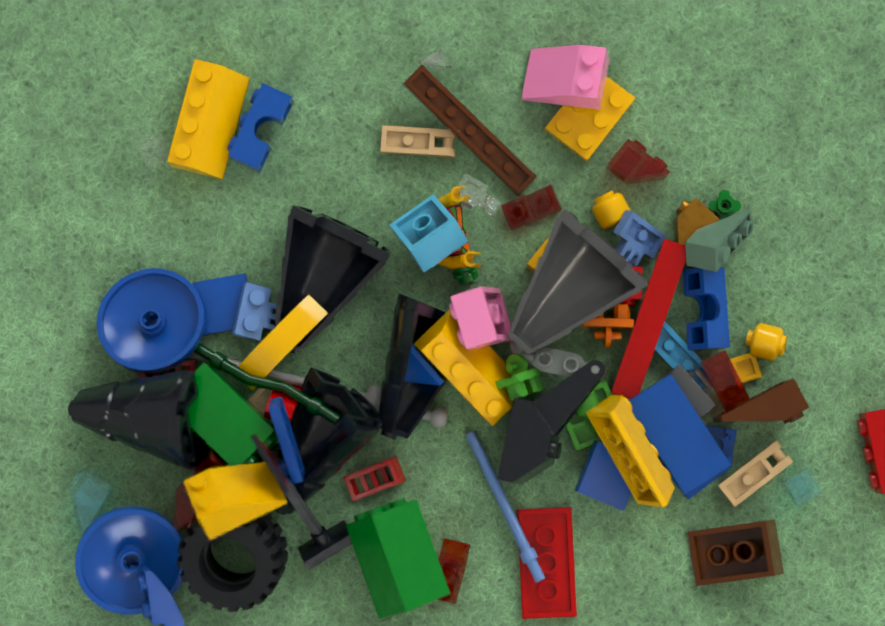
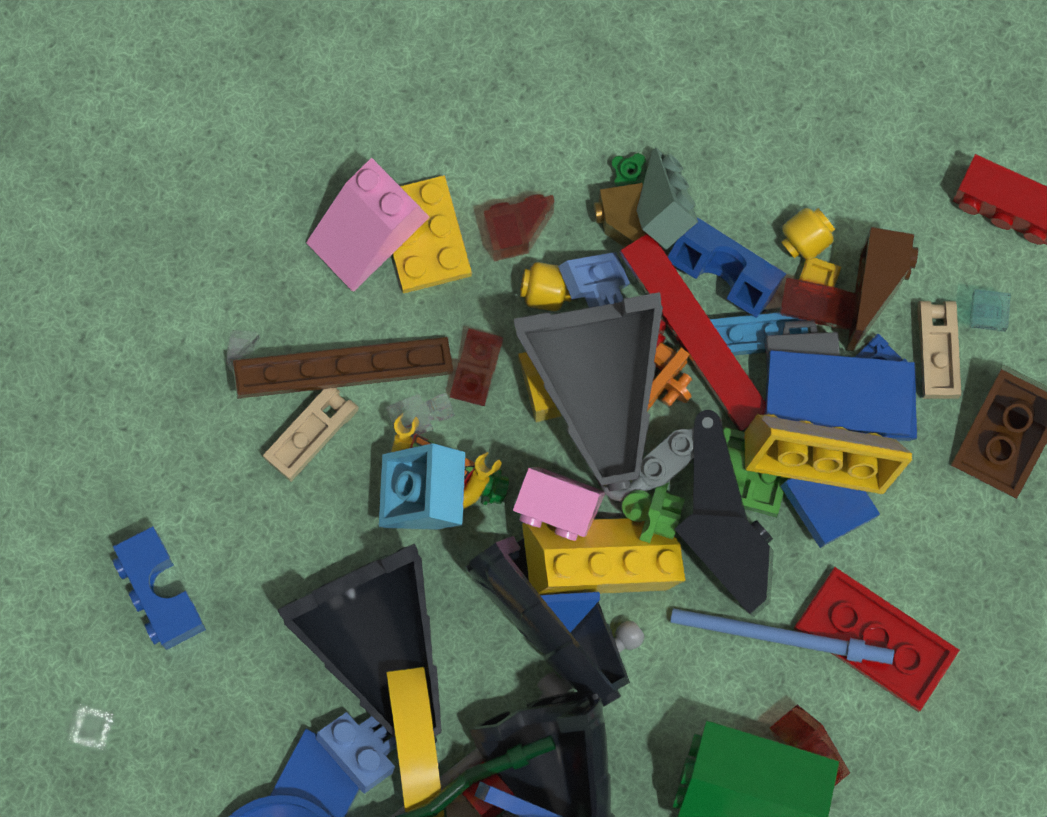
camera: 55 degrees left, 10 degrees down
(208, 119) = (103, 639): yellow slope -> none
(395, 469) = (654, 727): red slope -> none

